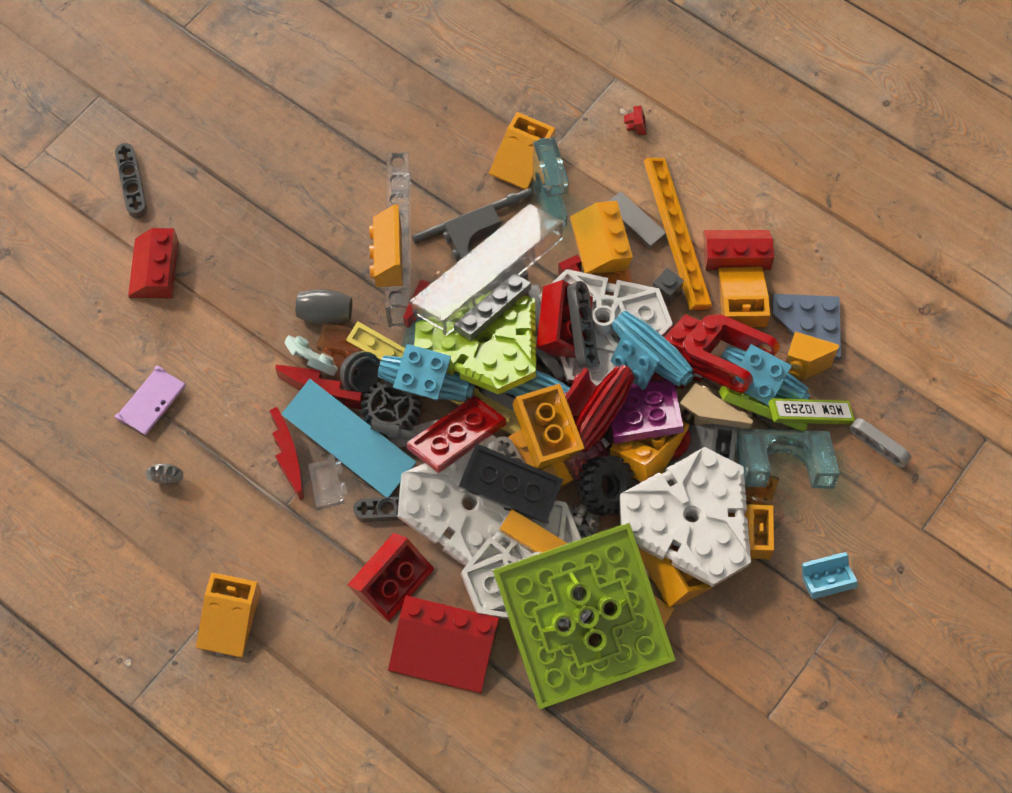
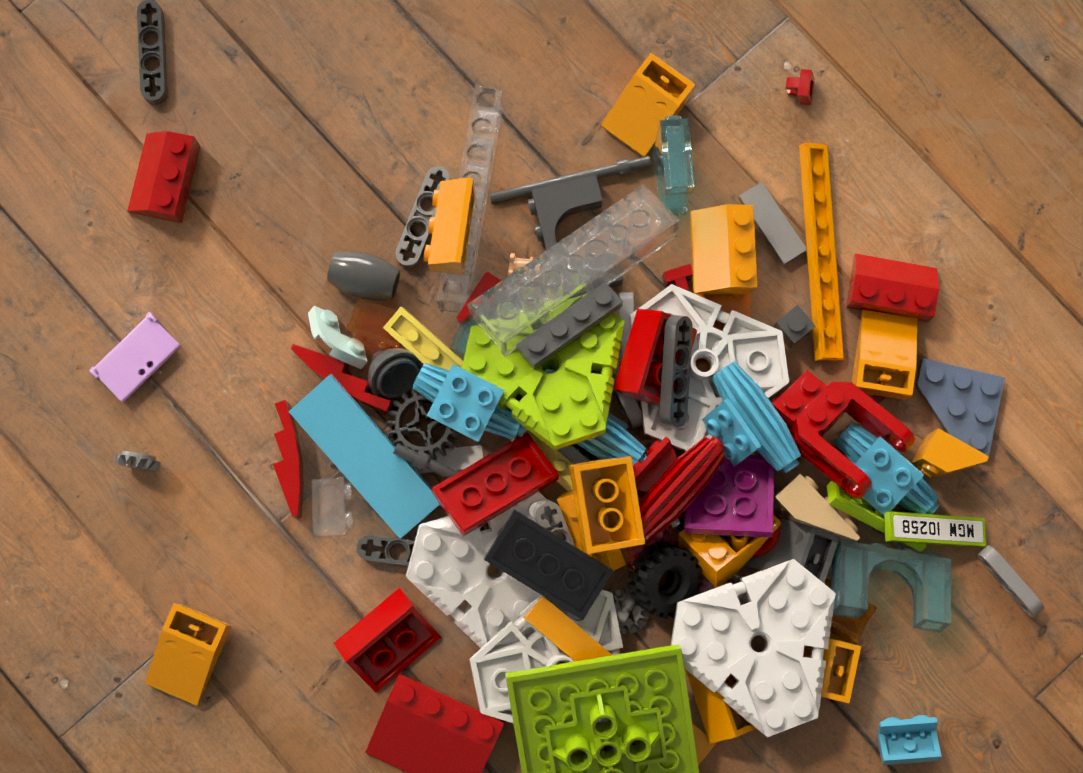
camera: 10 degrees right, 15 degrees up
(360, 260) = (419, 216): none -> light grey beam

